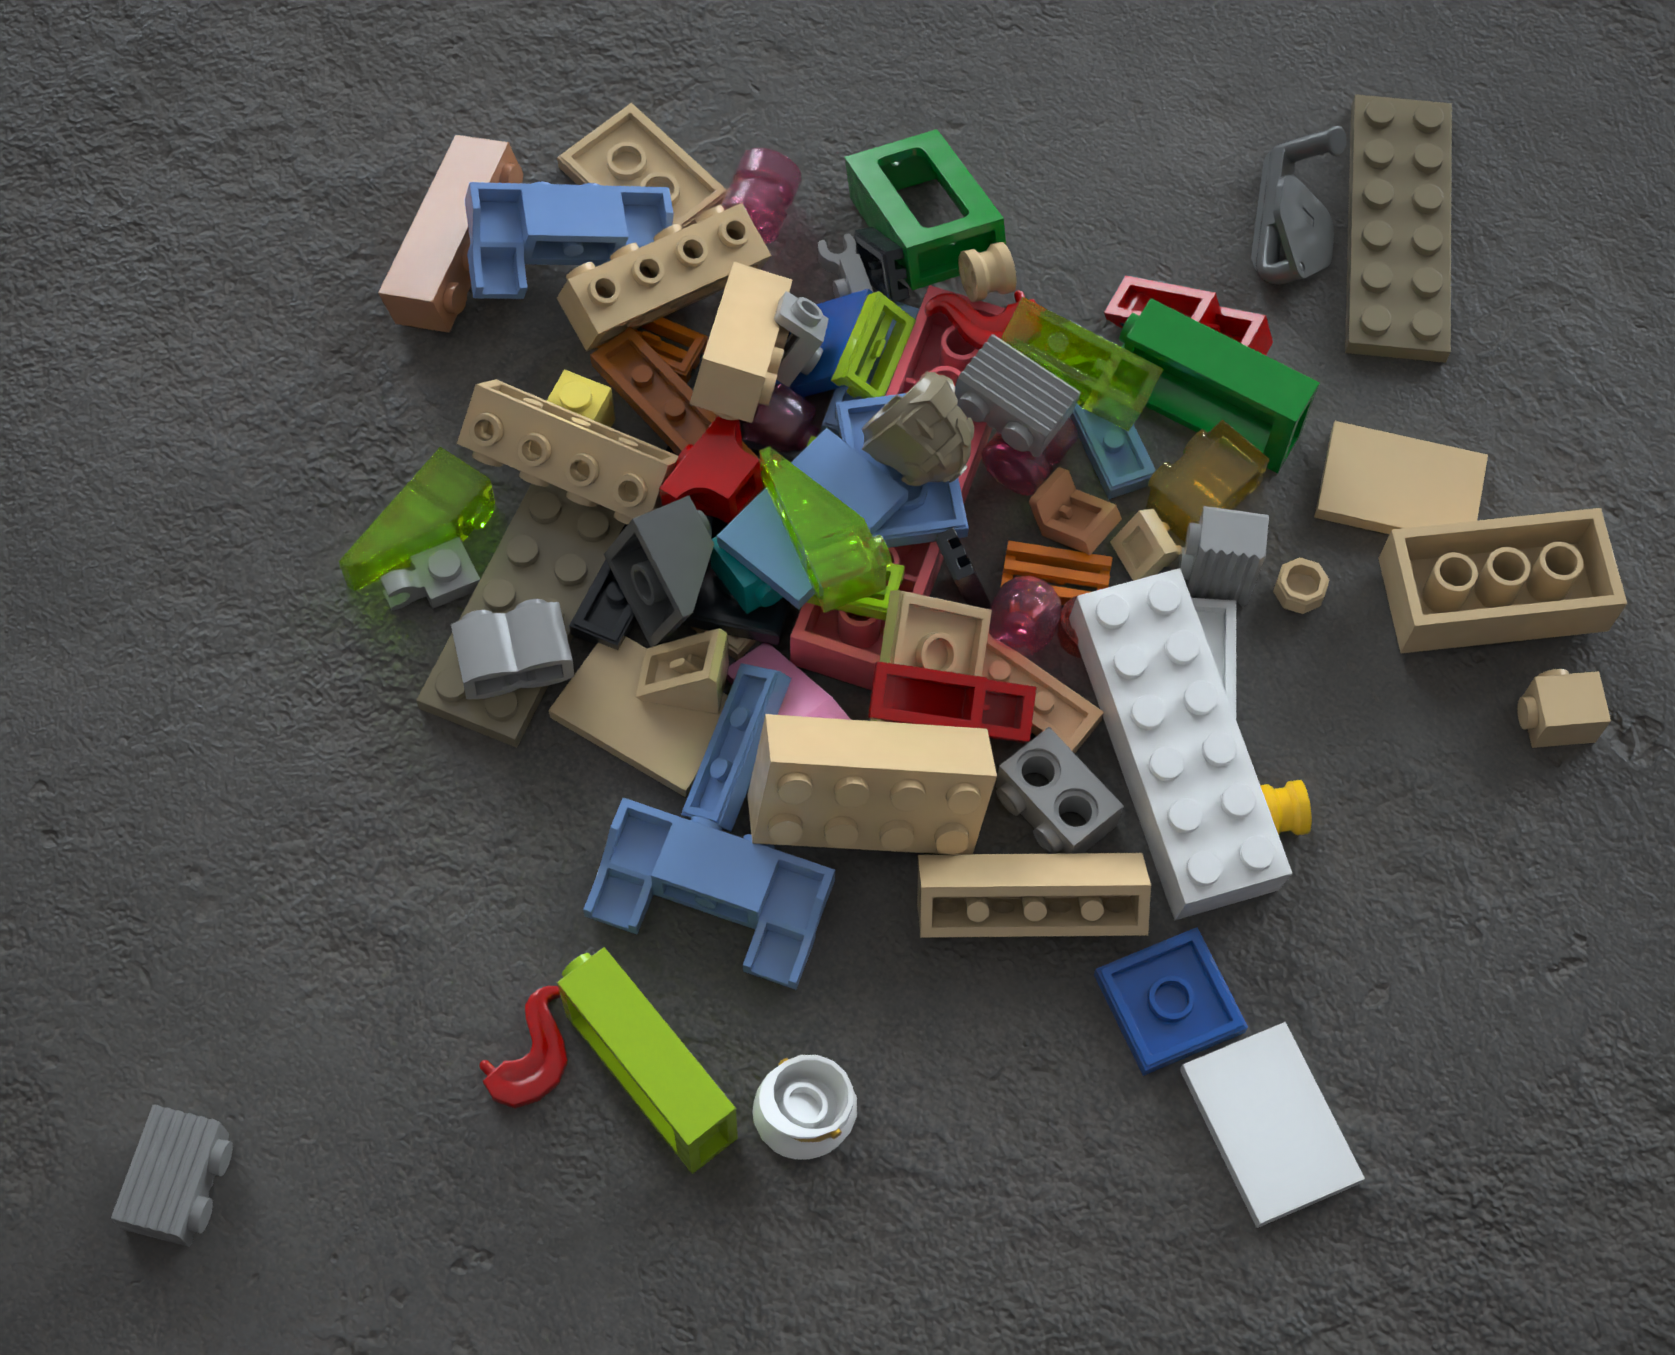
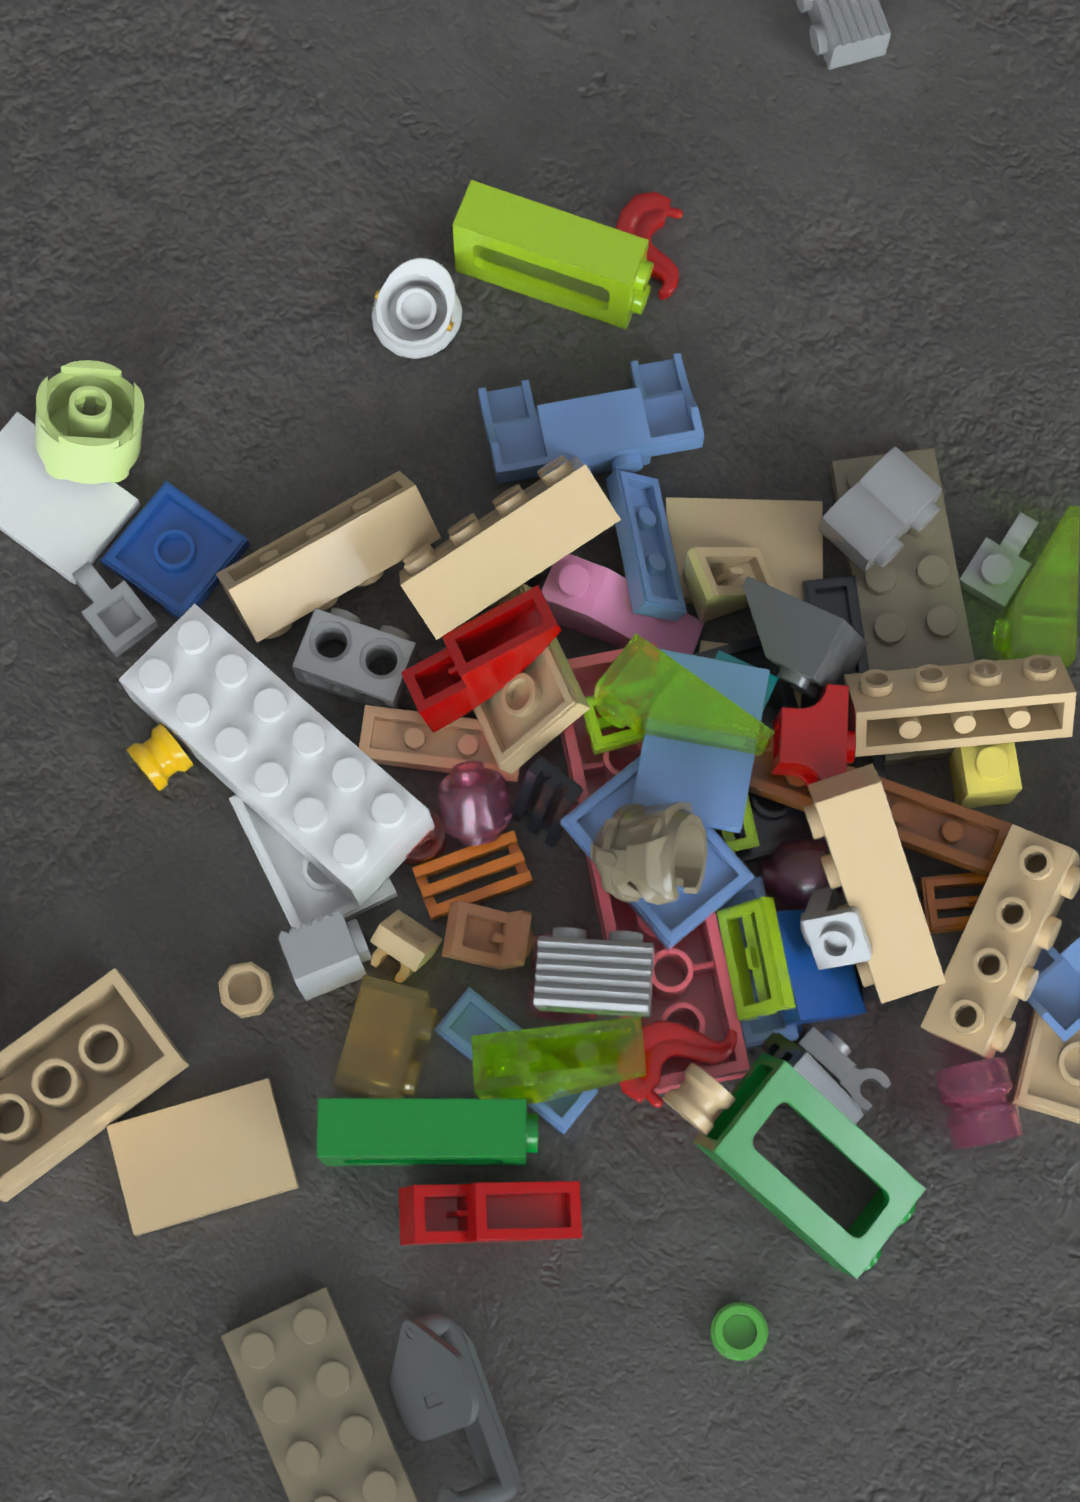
camera: 150 degrees right, 10 degrees up
(1042, 162) = (738, 1331): none -> bright green tile
(1189, 1111) = (88, 423): none -> yellowish green brick
(1259, 963) = (115, 613): none -> light grey plate

